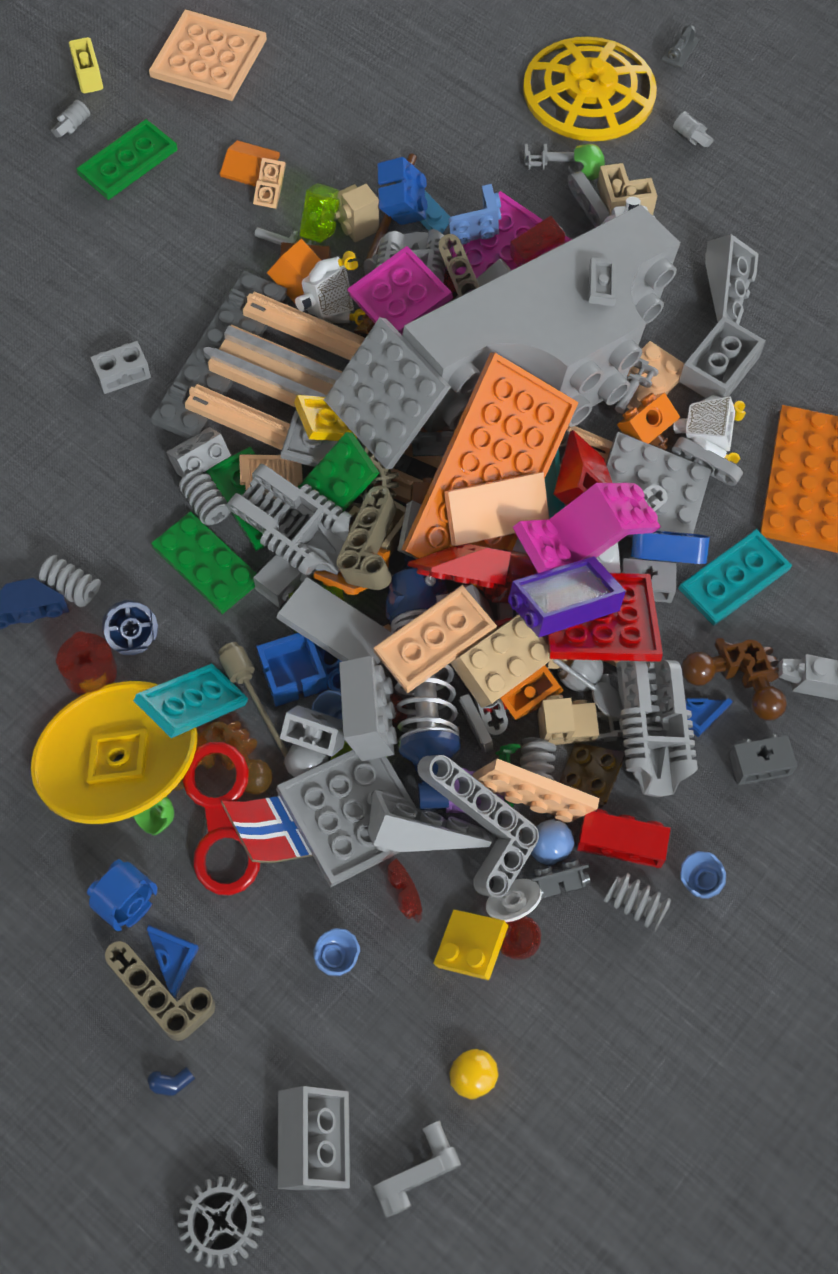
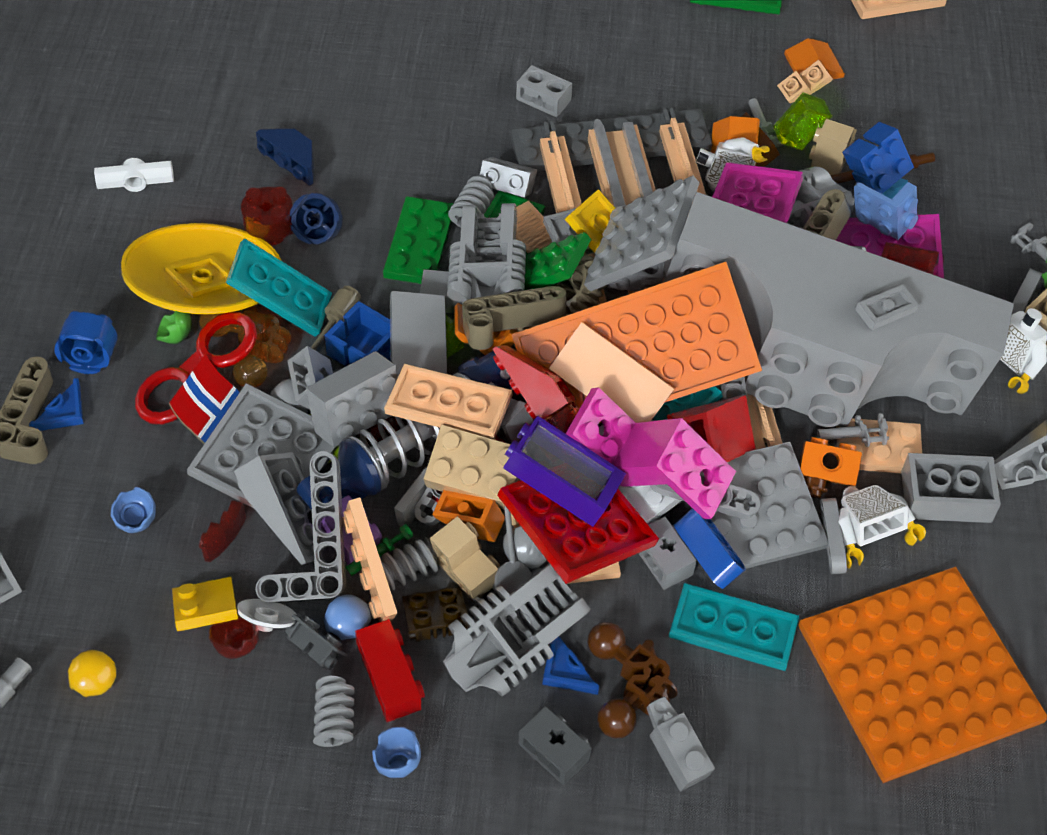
camera: 55 degrees right, 10 degrees down
(69, 582) = (329, 165): light grey piece -> none

